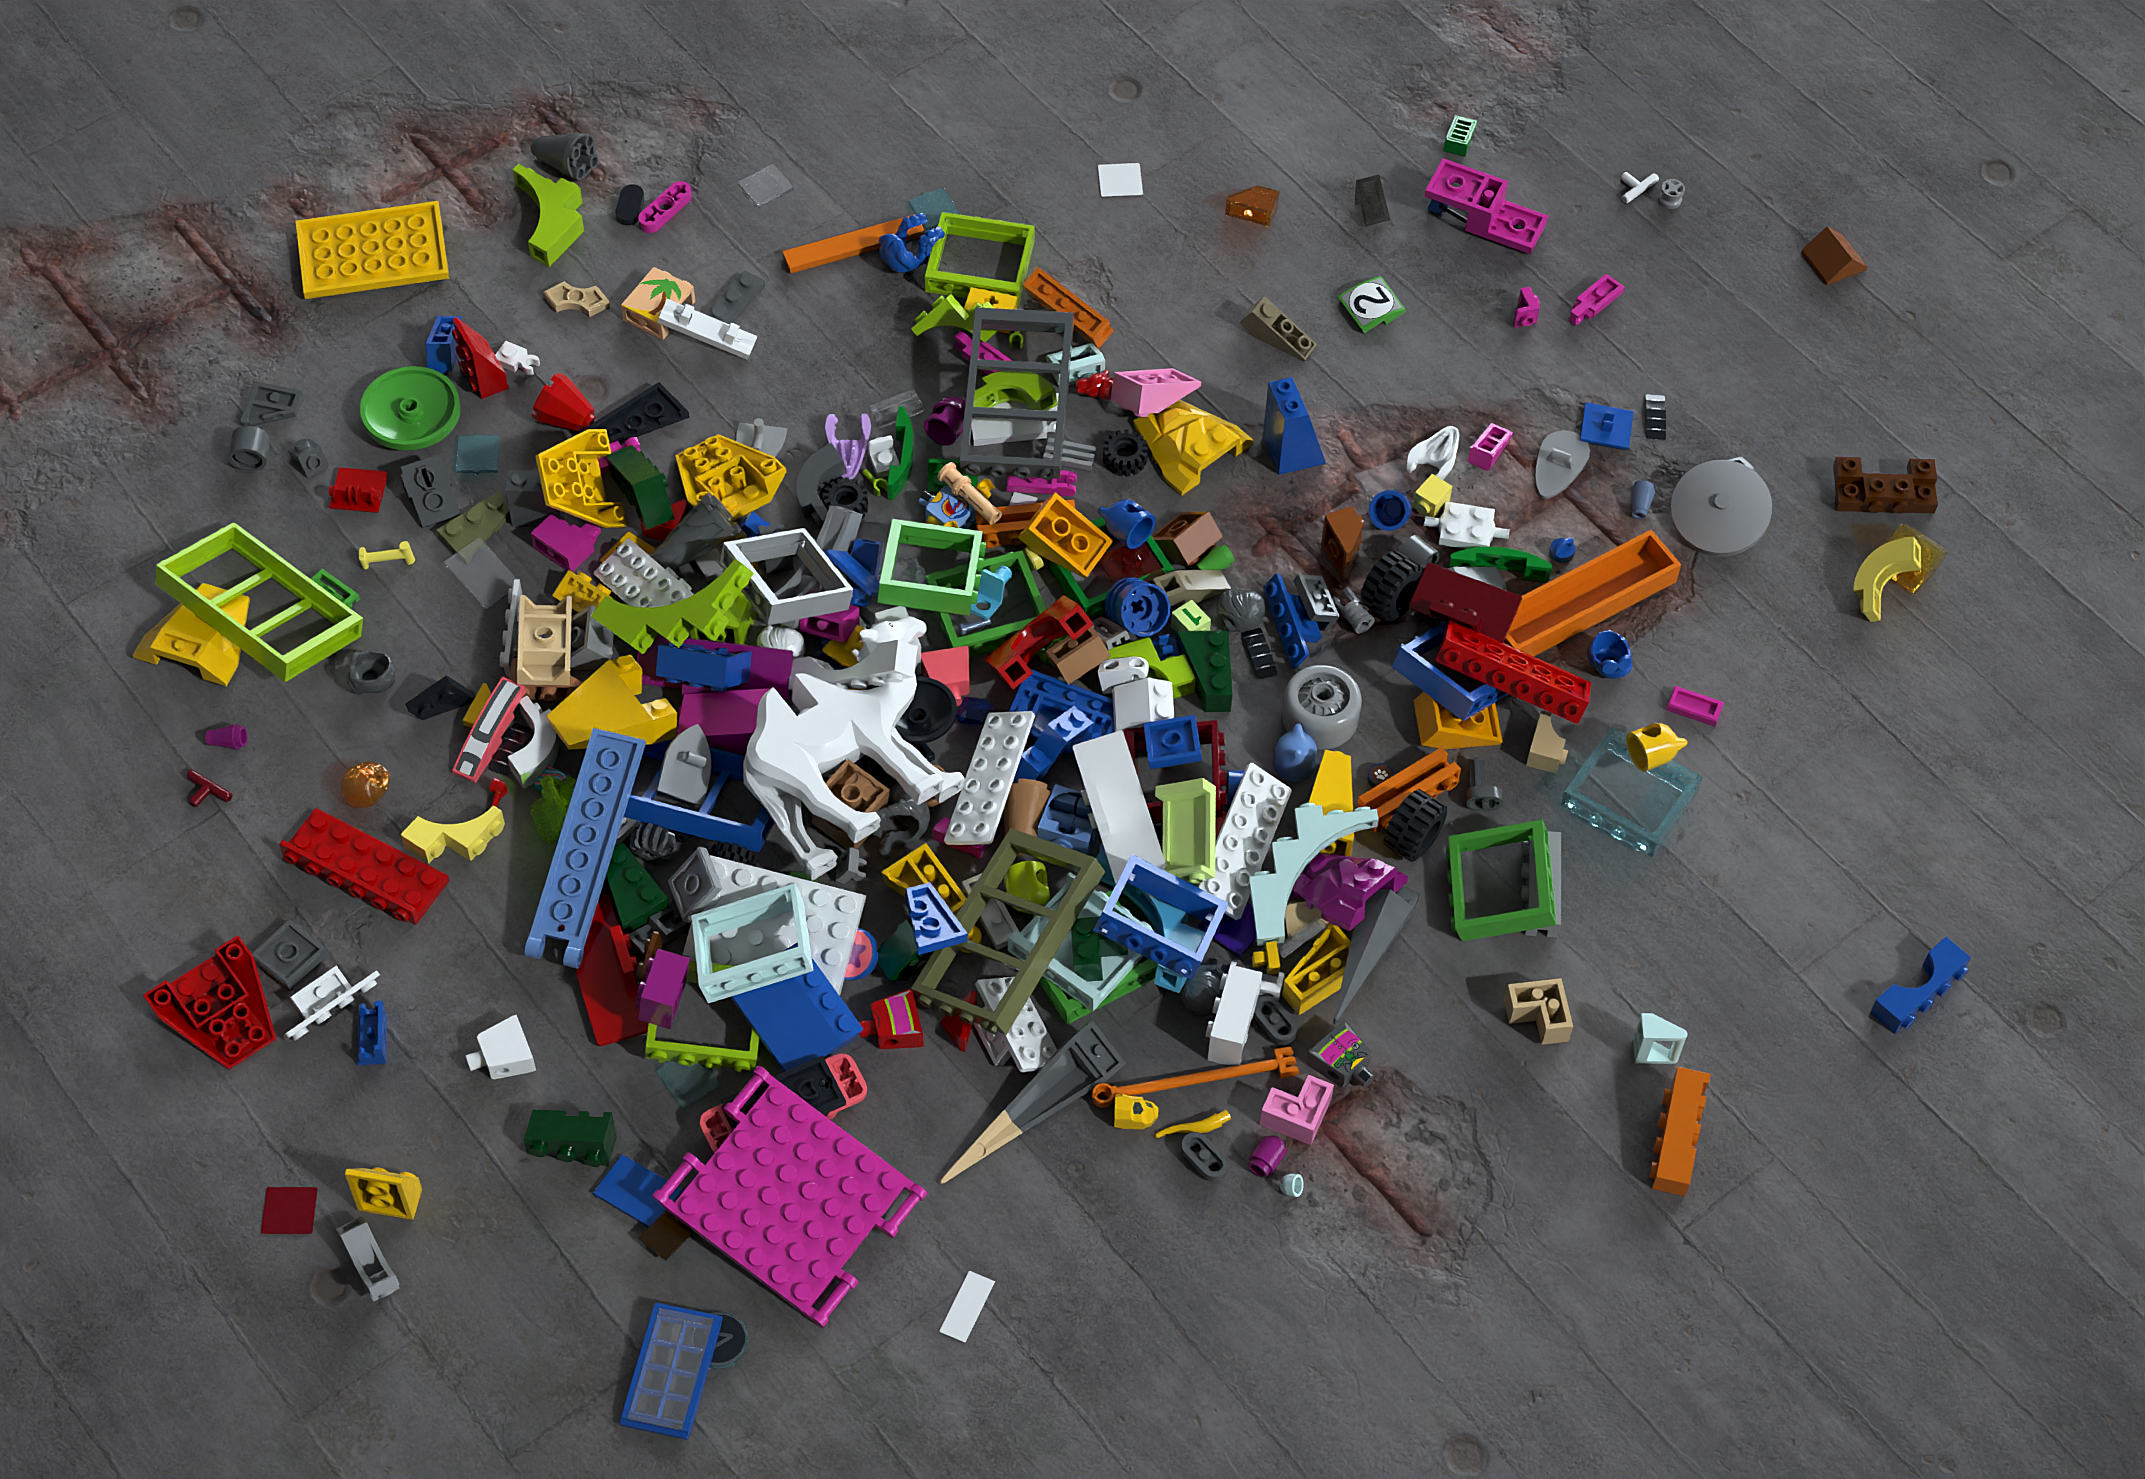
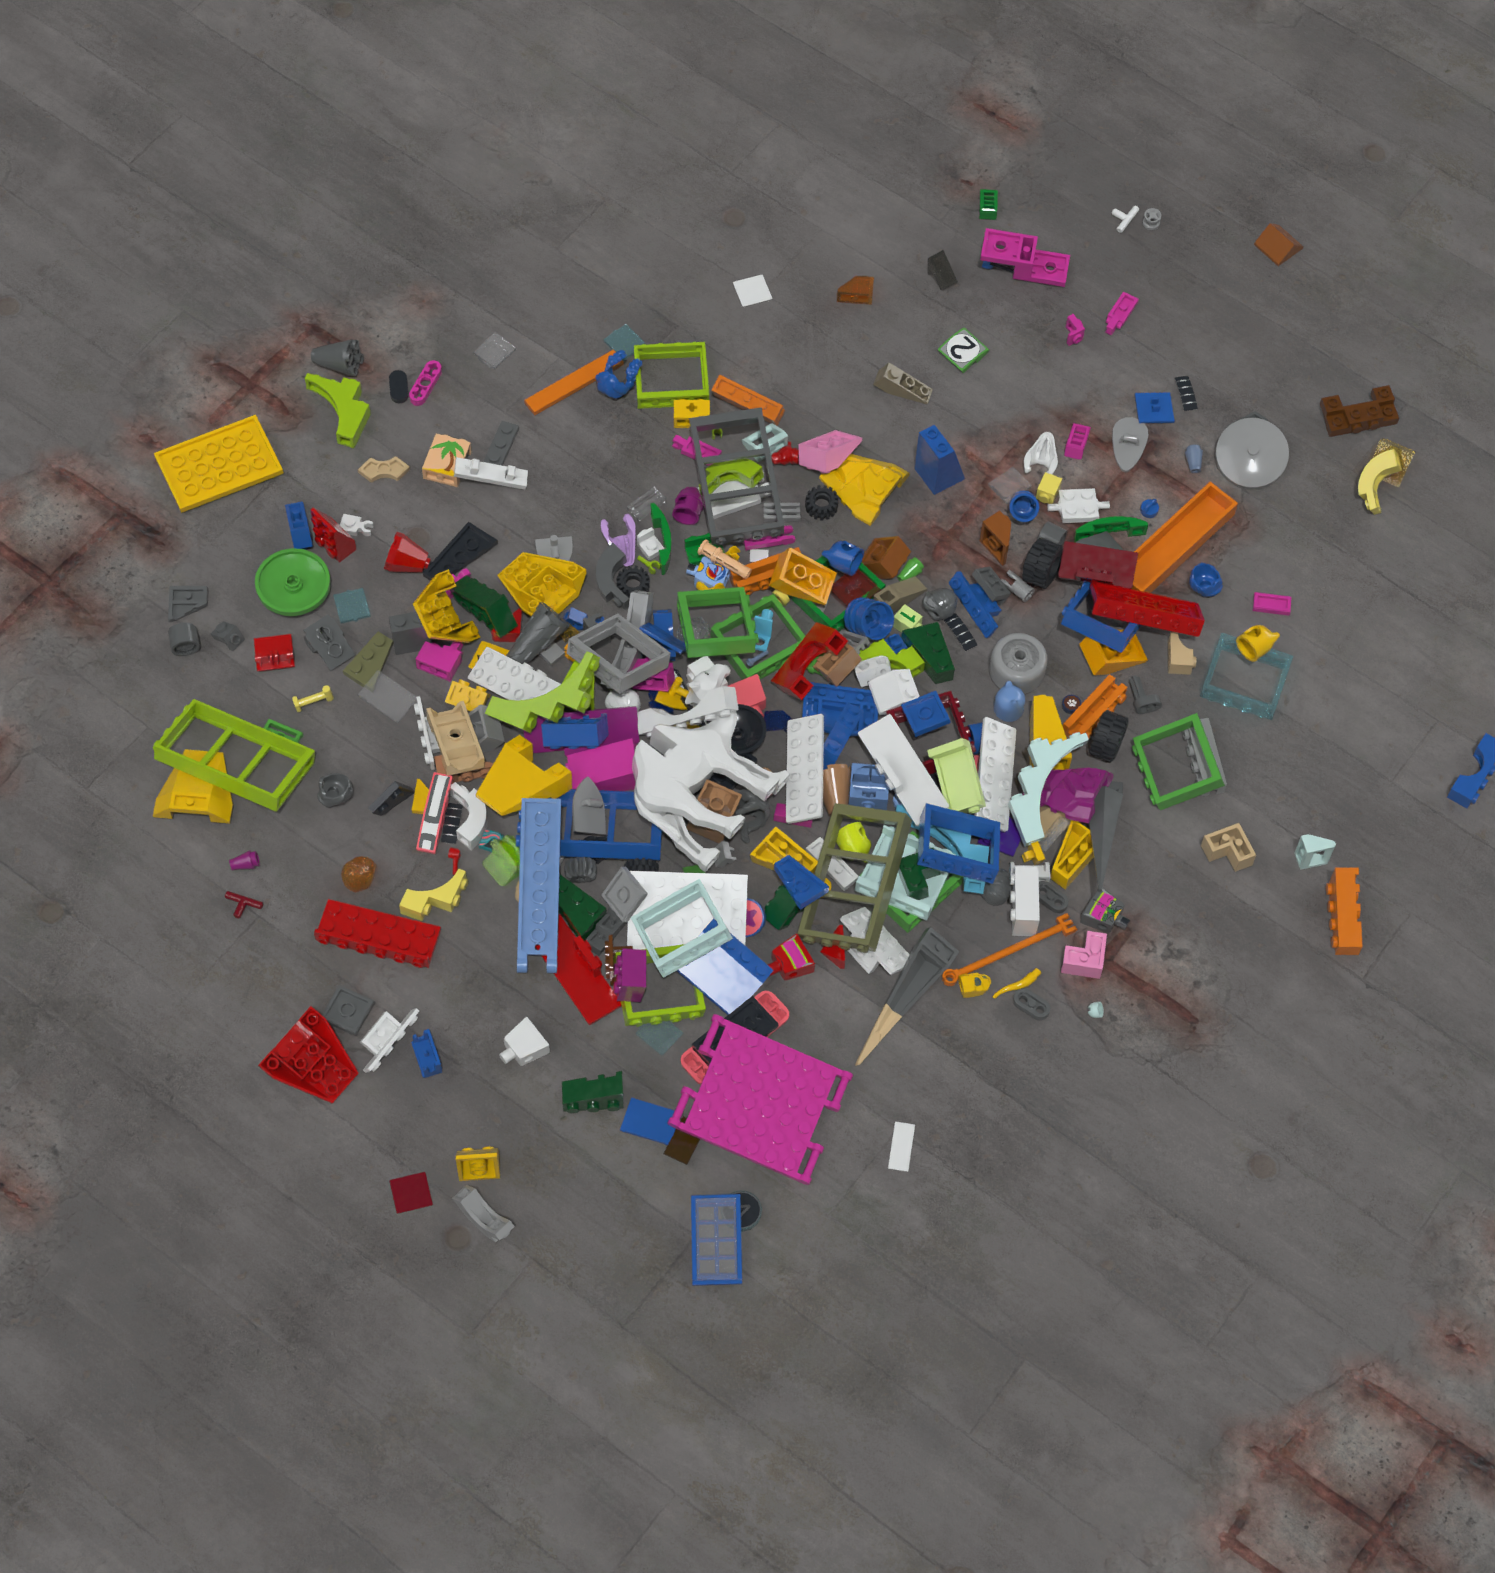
camera: 15 degrees left, 5 degrees up
(950, 313) = (664, 423): lime arch -> none
(1267, 1156) = (1074, 994): magenta brick -> none

